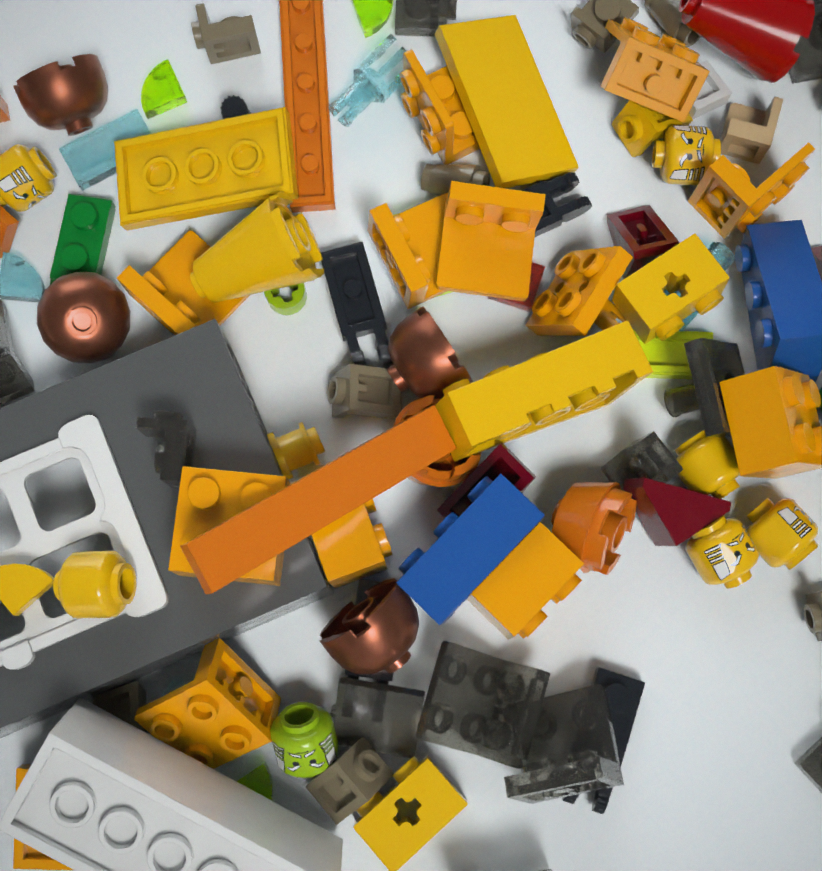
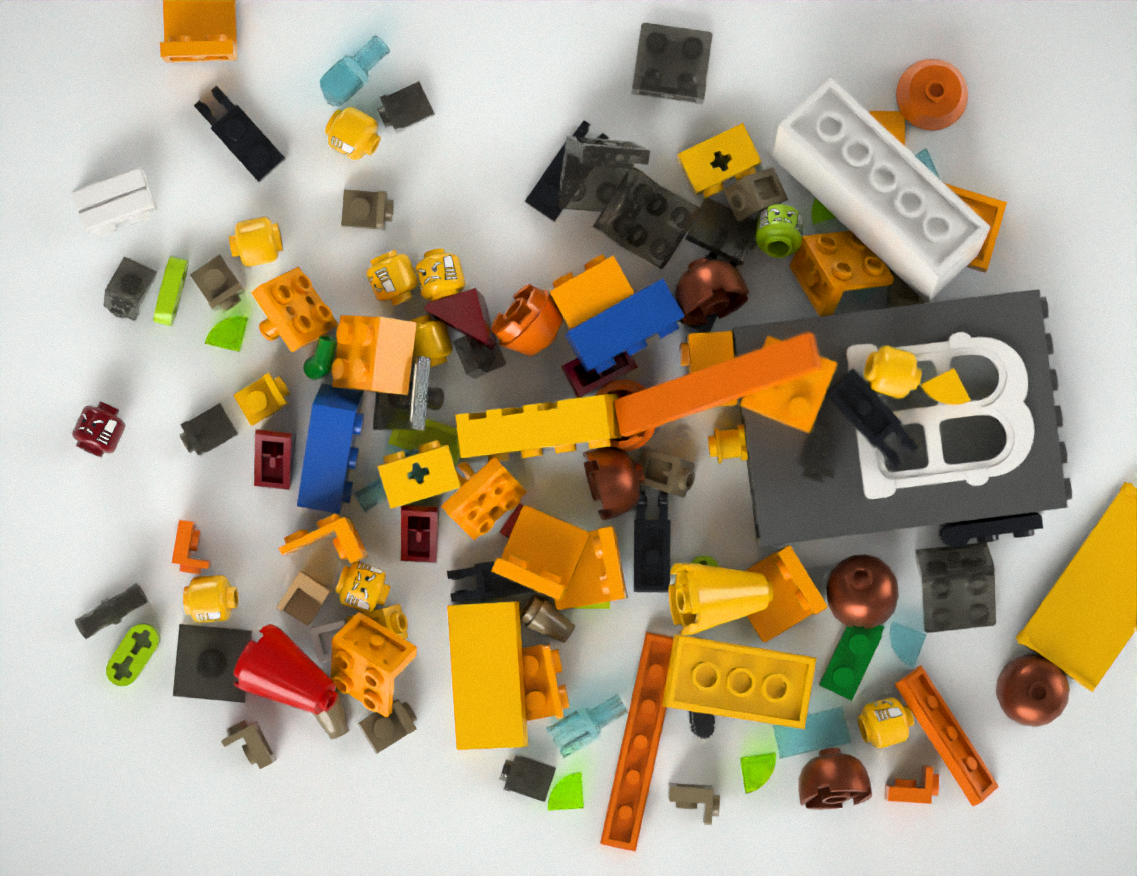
camera: 170 degrees left, 10 degrees up
(113, 519) = (869, 415): none -> black hinge

